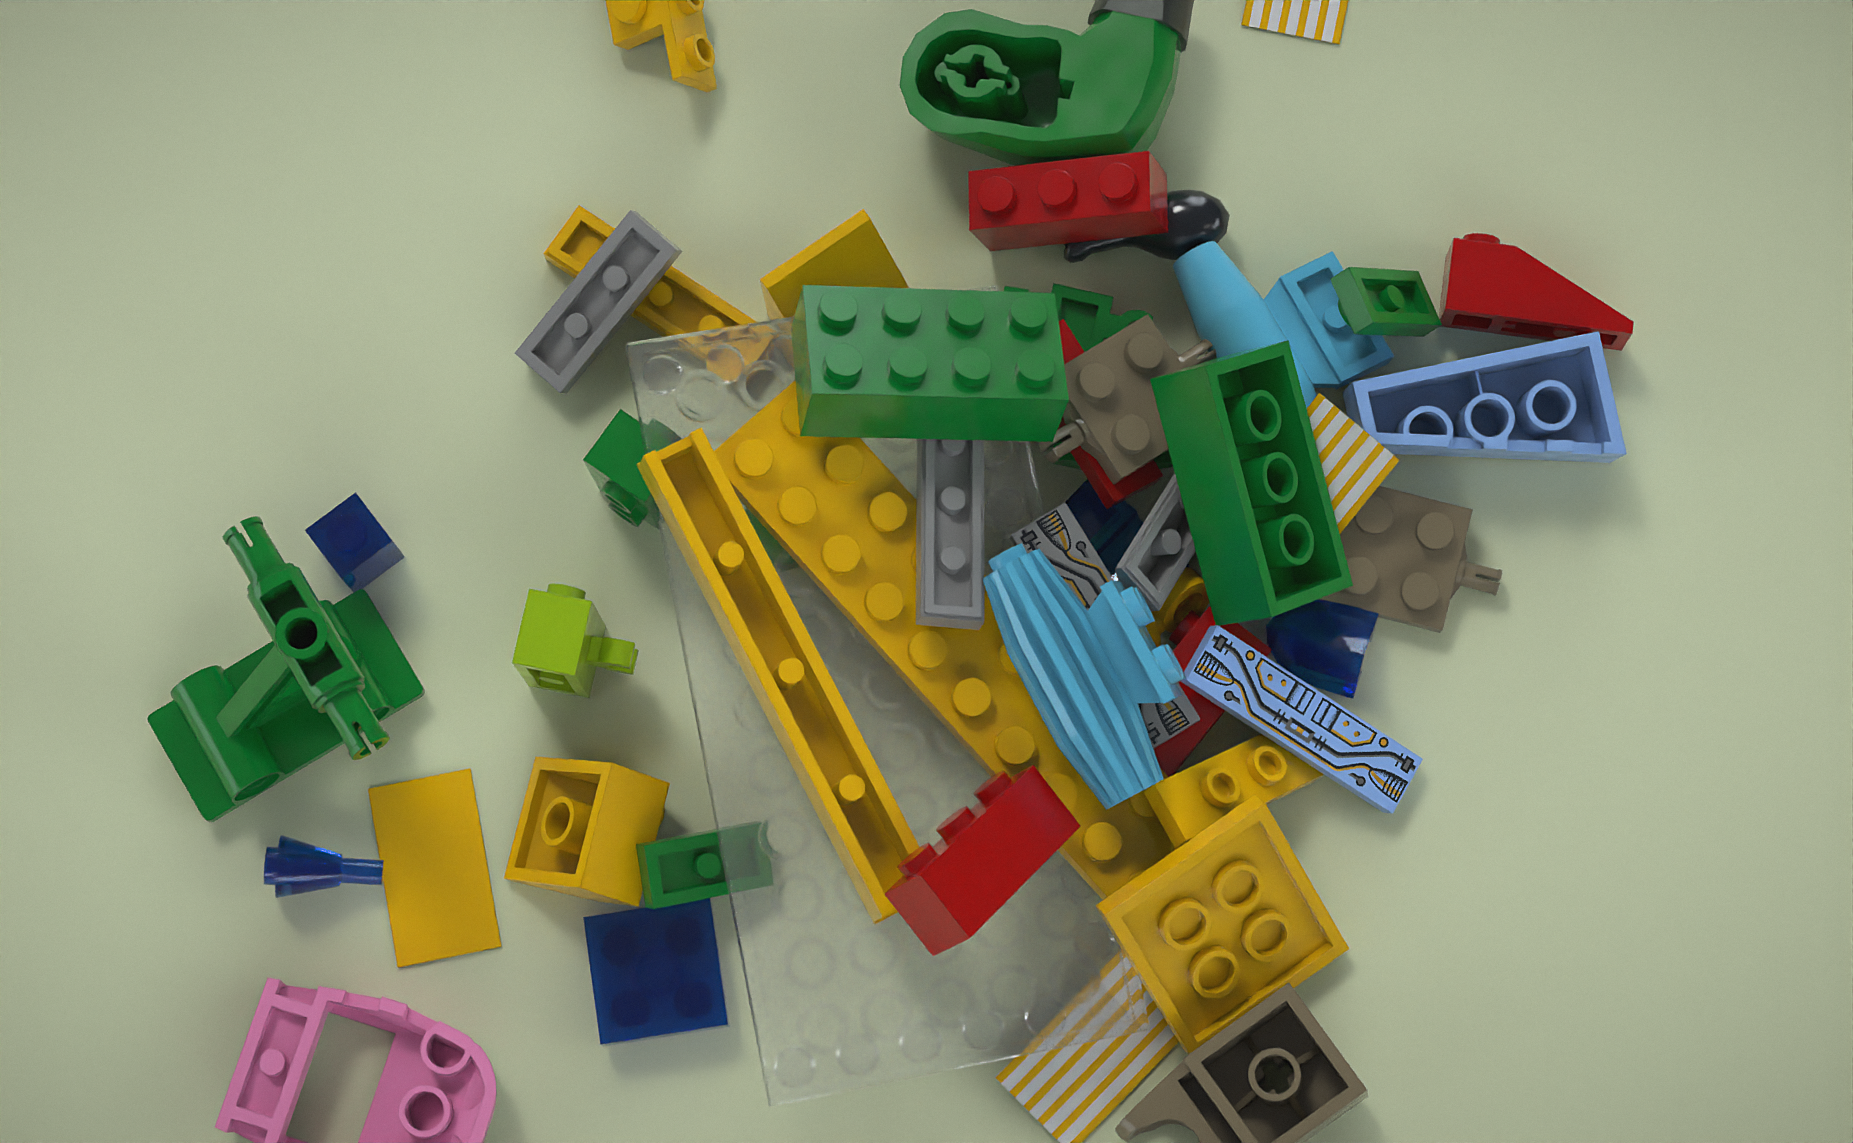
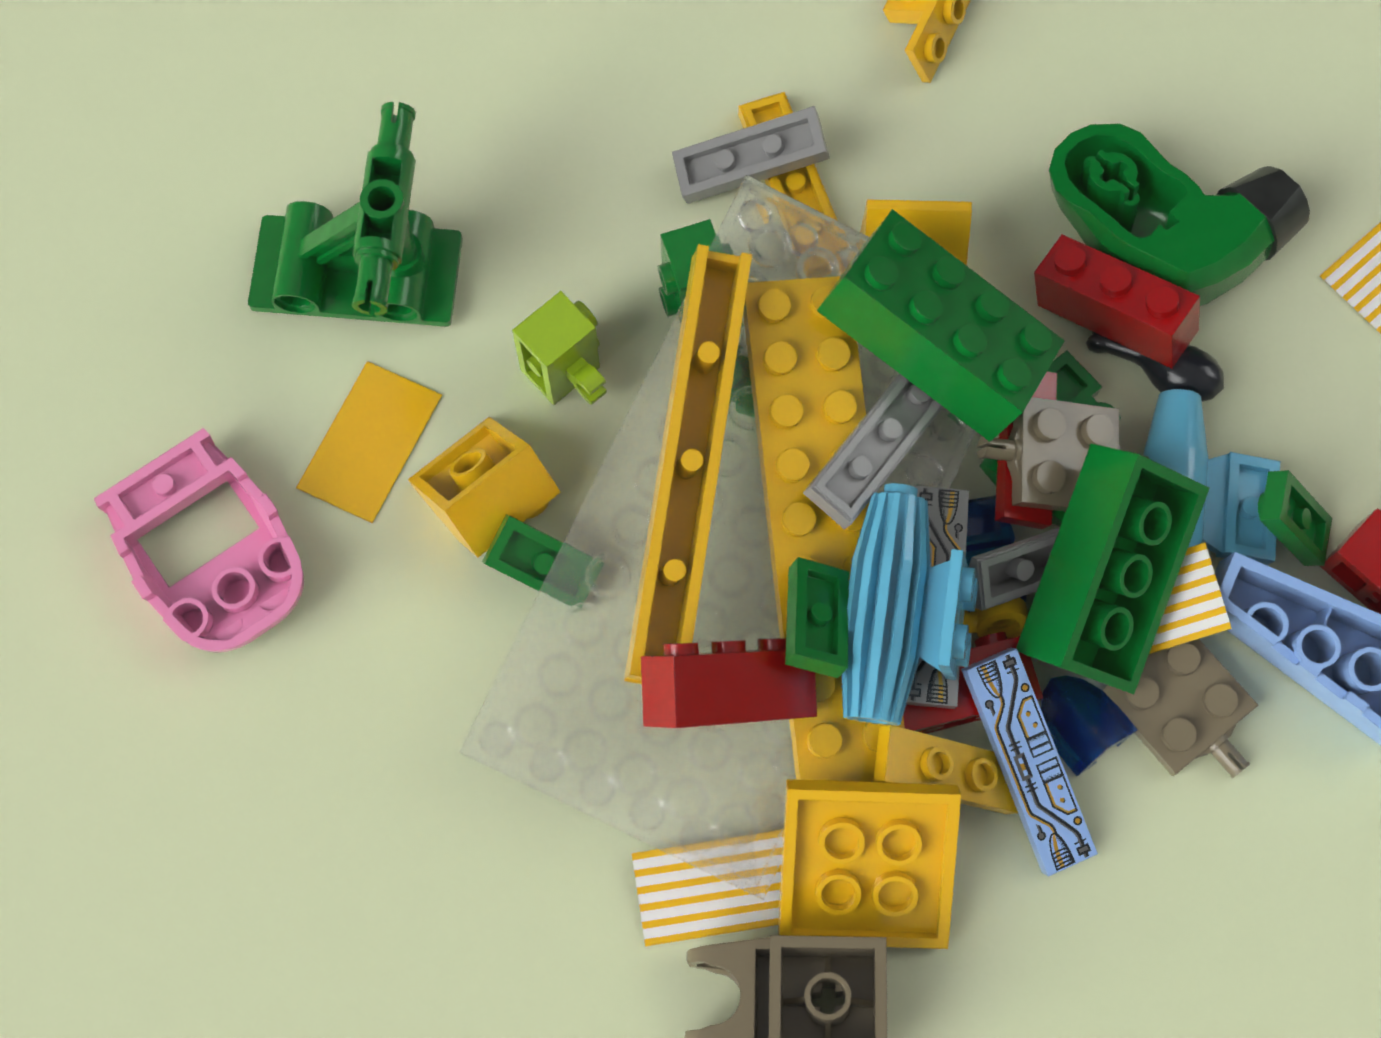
camera: 30 degrees right, 5 degrees down
(304, 868) = (283, 377): clear blue cone -> none
(354, 543) = (477, 197): clear blue brick -> none
(656, 972) = (457, 611): clear blue plate -> none
(1017, 735) = (817, 618): none -> green plate

